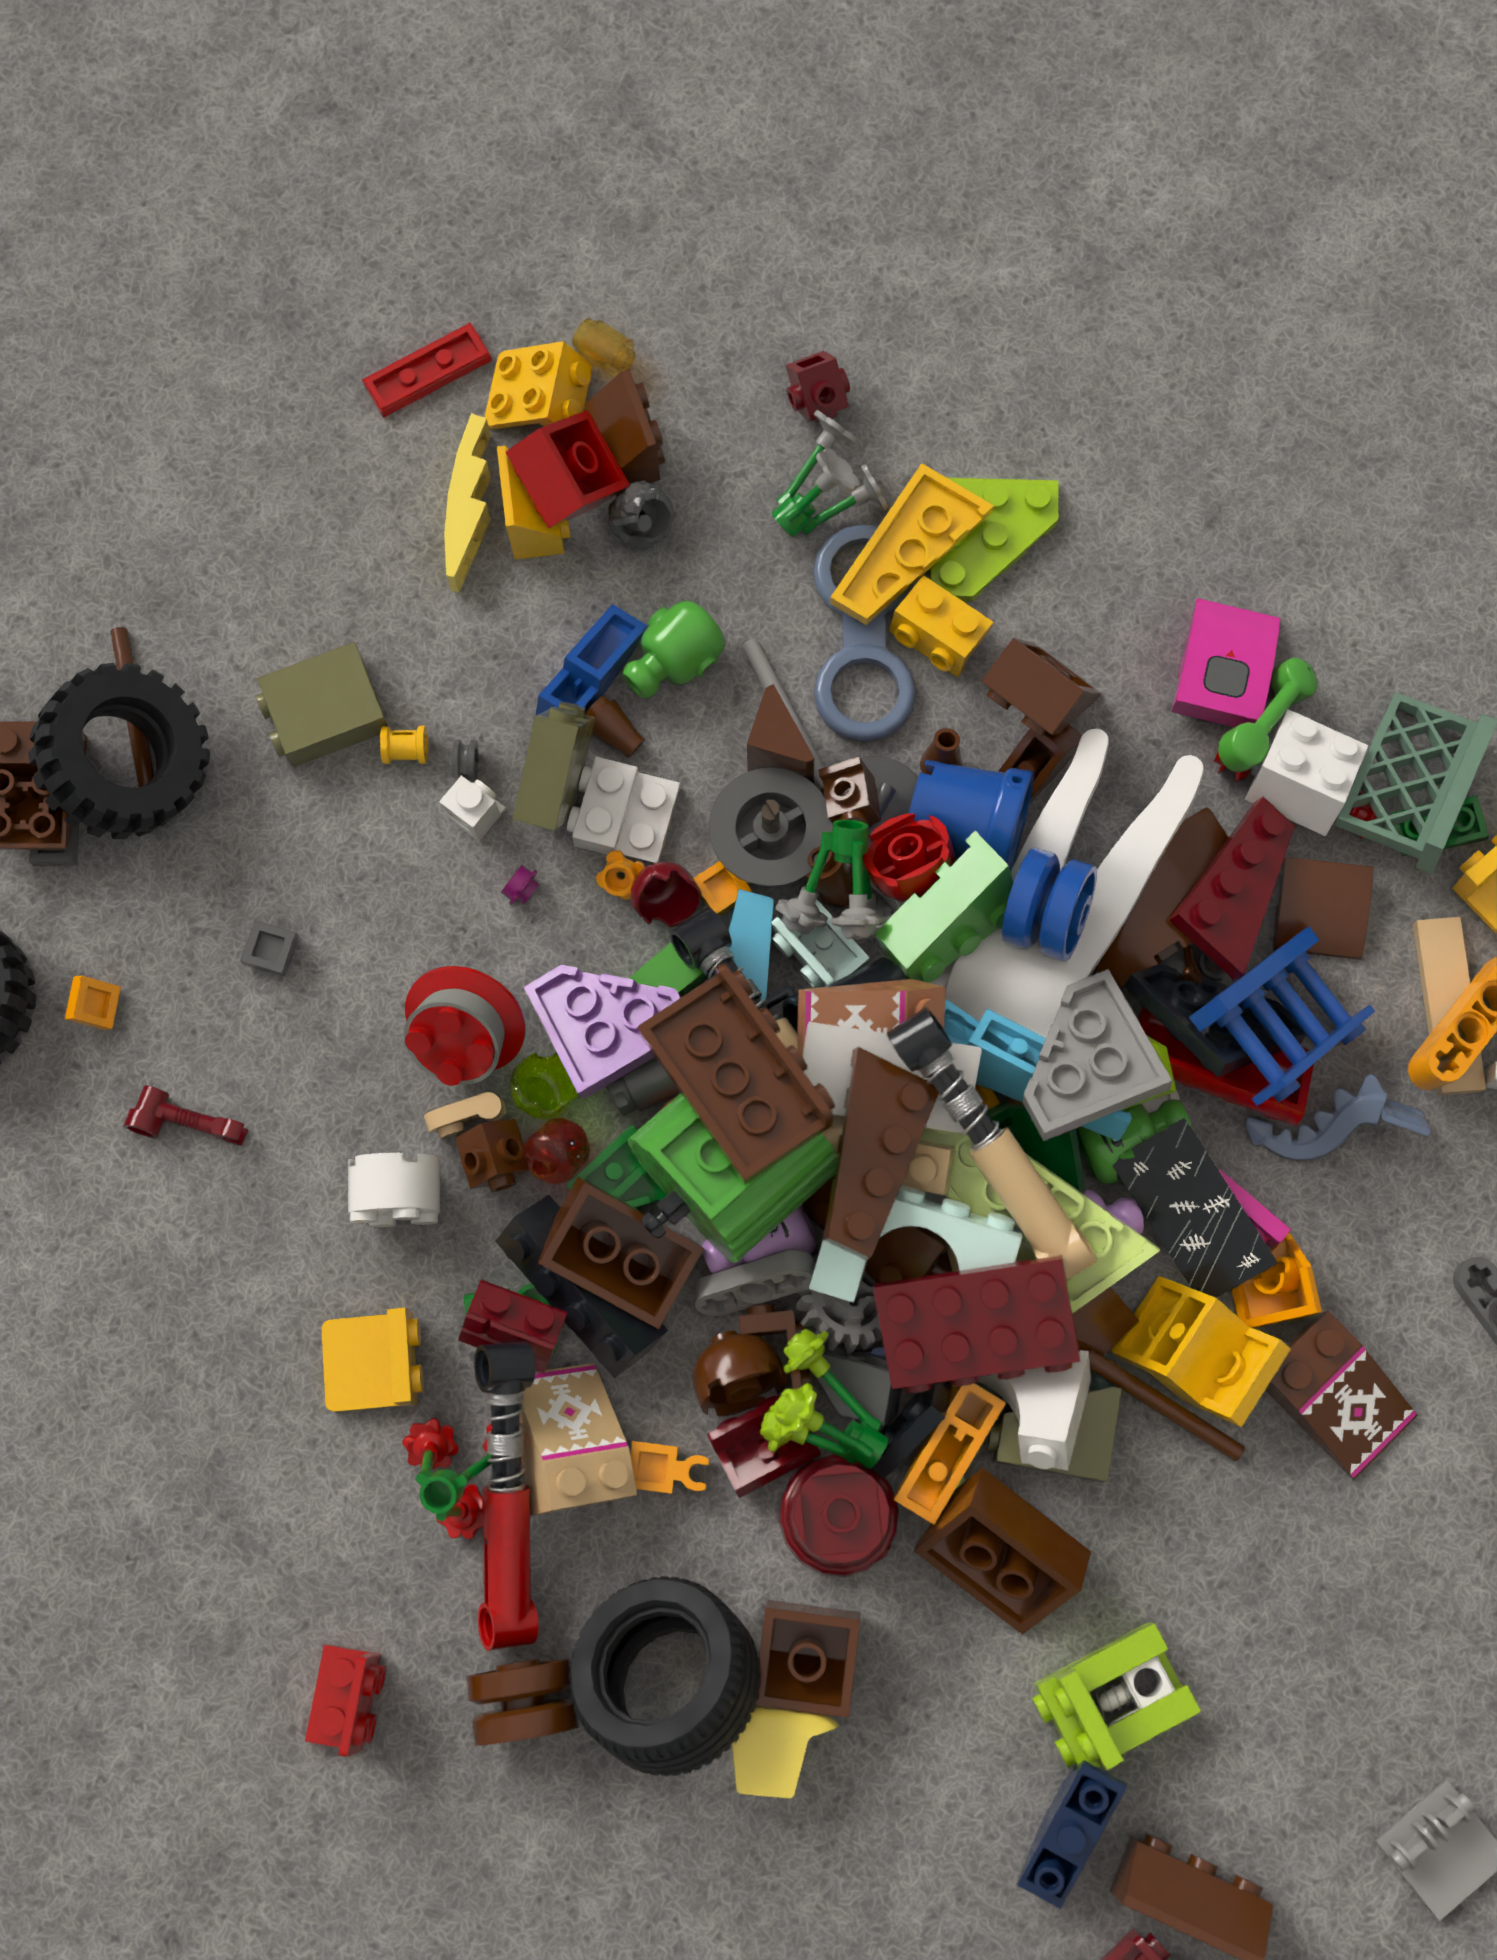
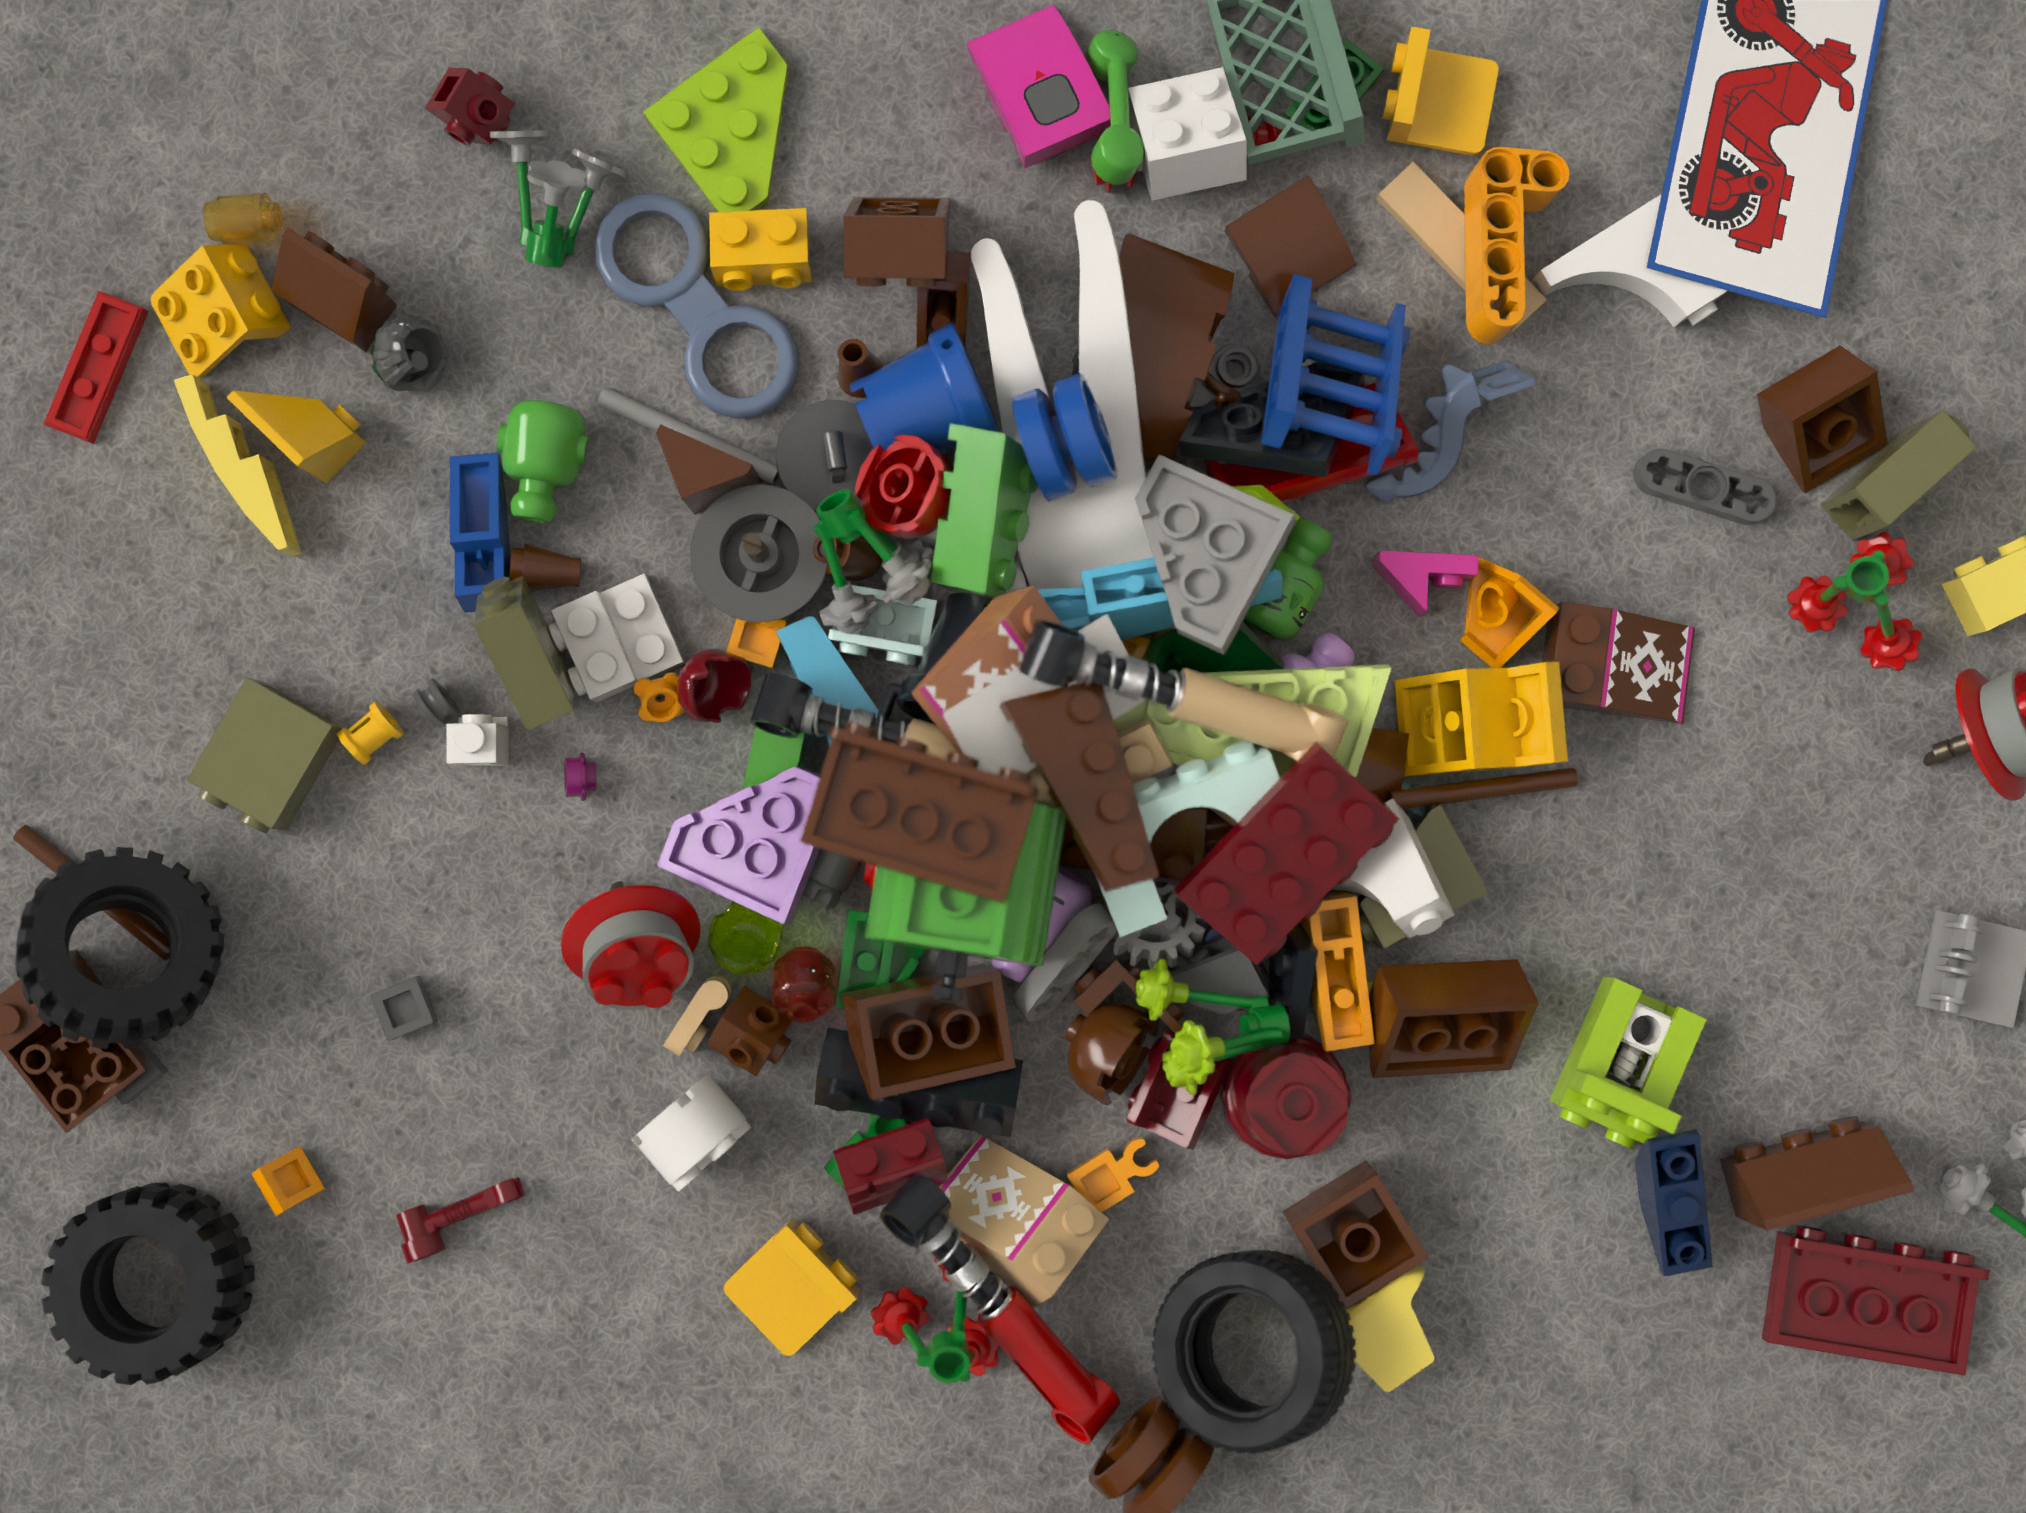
camera: 40 degrees left, 10 degrees up
(567, 468) = (307, 366): red brick -> none
(850, 792) = (806, 468): reddish brown brick -> none
(912, 538) = (672, 182): yellow wing -> none
(1194, 1211) = (1386, 605): black sticker -> none
(1234, 891) = (1209, 297): dark red wing -> none

